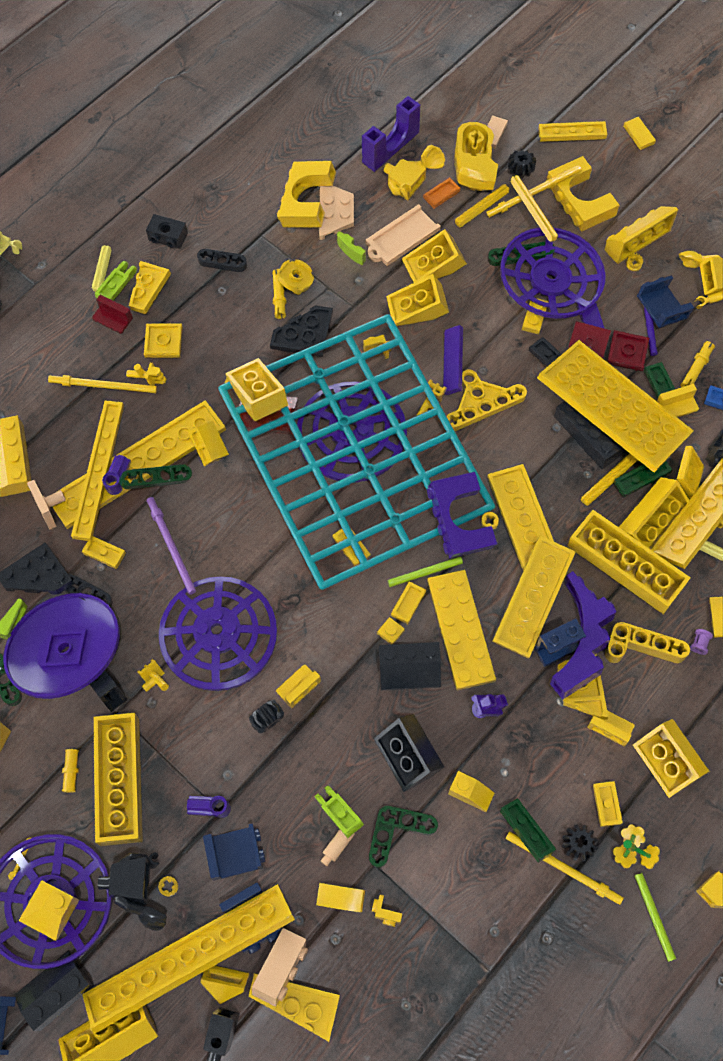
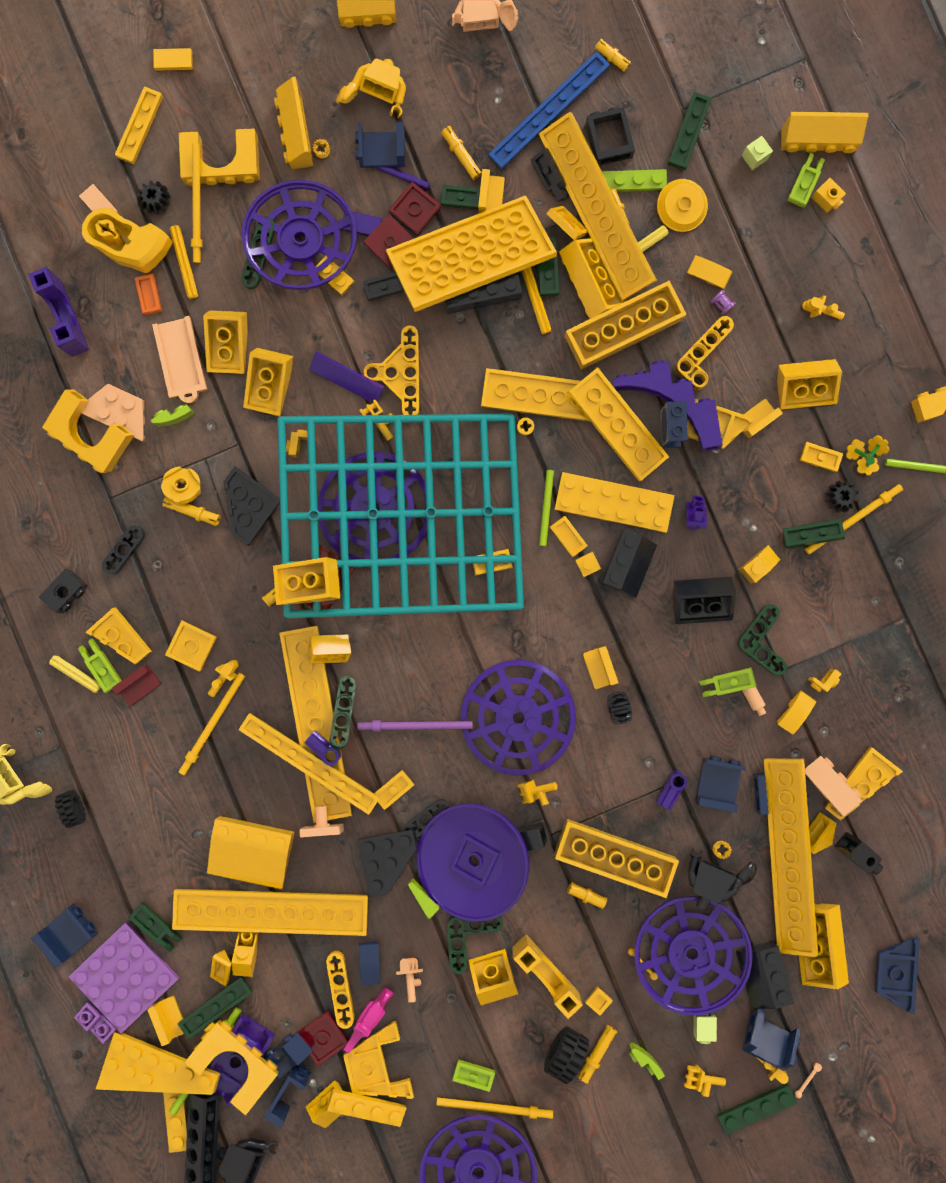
camera: 65 degrees left, 20 degrees up
(49, 910) = (703, 957): yellow slope -> none
(409, 175) = (111, 314): yellow torso -> none
(456, 540) = (488, 457): dark purple arch -> none
(534, 209) = (219, 215): yellow axle -> none

